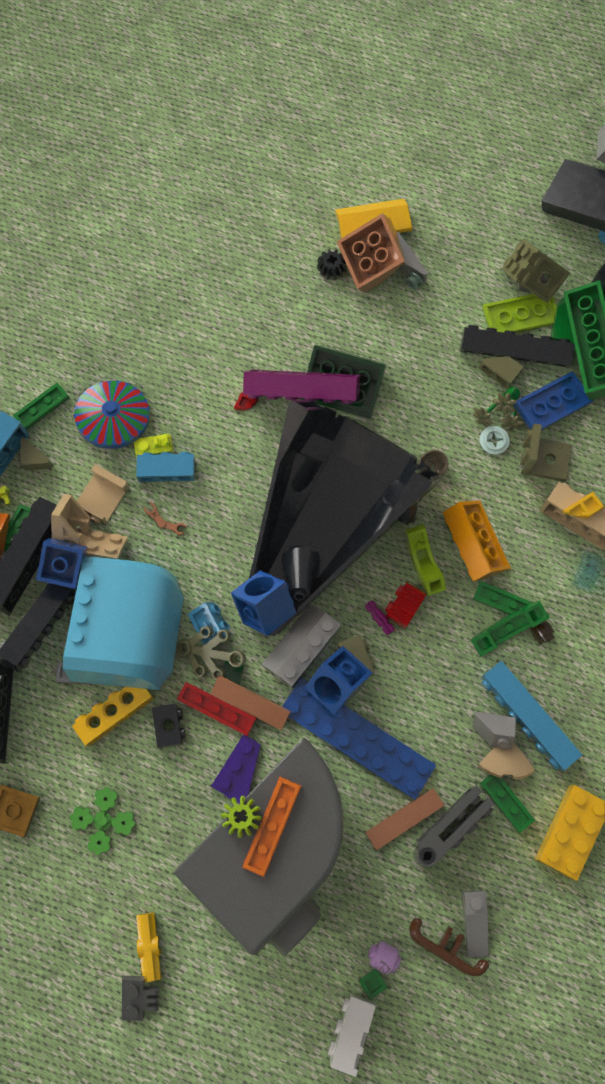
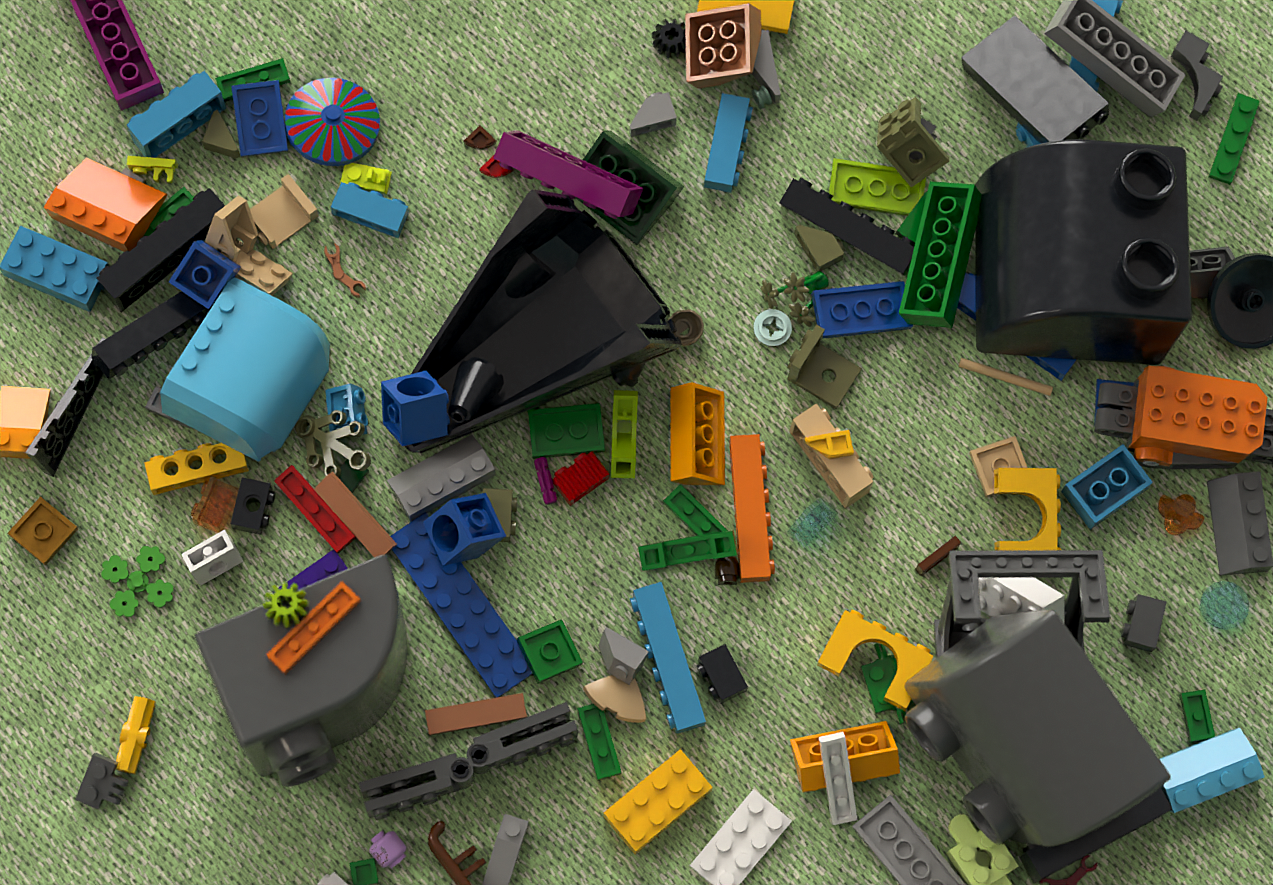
camera: 15 degrees right, 0 degrees up
(57, 432) = (259, 118): none -> blue plate
(139, 736) = (215, 505): none -> clear orange bracket
(153, 779) = (212, 557): none -> white brick
(225, 386) = (480, 139): none -> reddish brown tile
(344, 321) = (654, 114): none -> light grey slope
(379, 574) = (566, 430): none -> green plate
(403, 321) = (726, 143): none -> dark azure brick
(406, 880) = (448, 780): none -> dark grey hinge
(440, 747) = (549, 651): none -> green plate
(539, 578) = (749, 508): none -> orange brick
(575, 712) = (722, 674): none -> black brick

